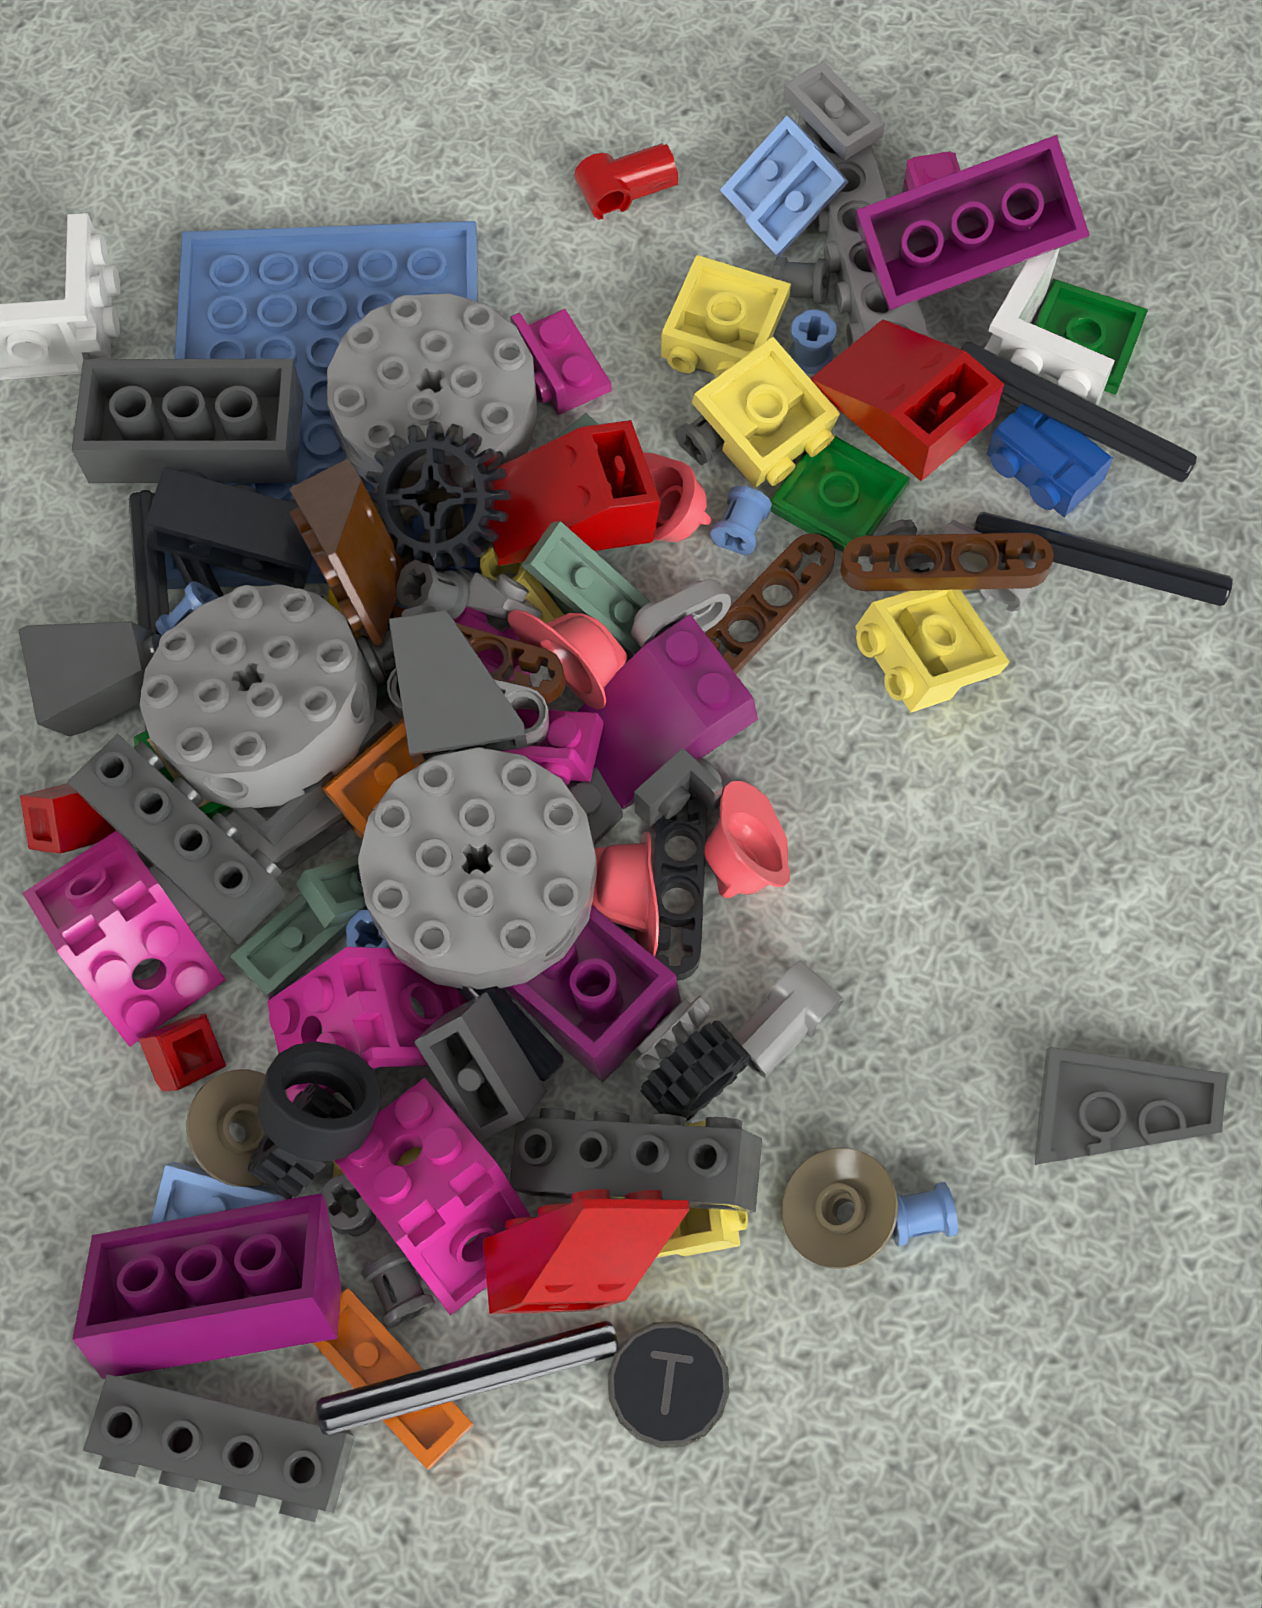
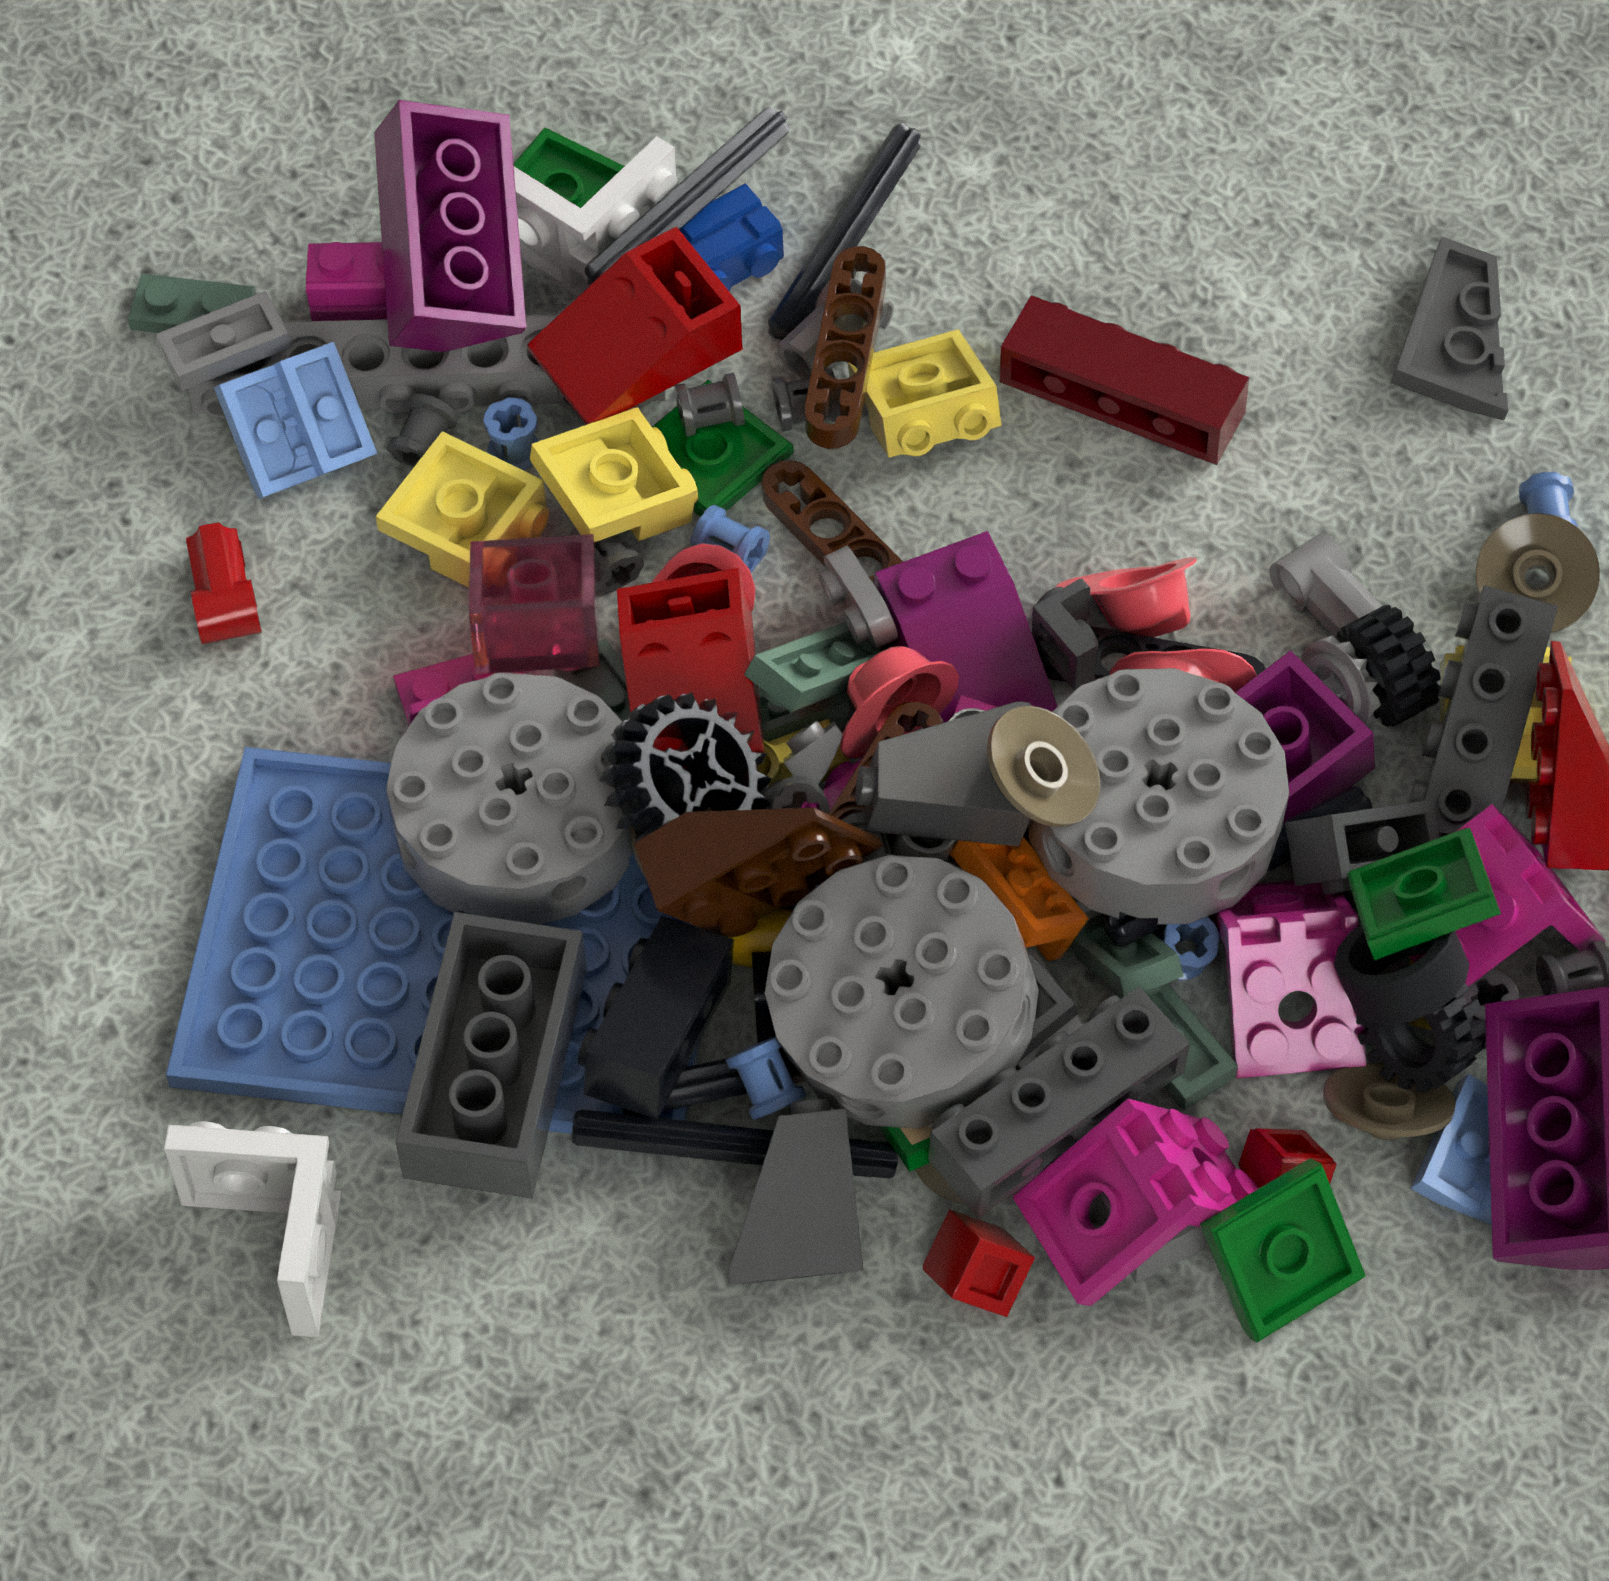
camera: 80 degrees left, 10 degrees down
(77, 1050) = (1283, 1250): none -> green tile
(377, 1106) = (1422, 893): none -> green tile
(429, 774) = (1043, 766): none -> dark tan dish
(624, 371) = (534, 604): none -> clear pink brick
(867, 473) = (709, 404): none -> dark grey bush
(897, 103) = (170, 301): none -> sand green plate
(980, 806) = (1124, 379): none -> dark red brick

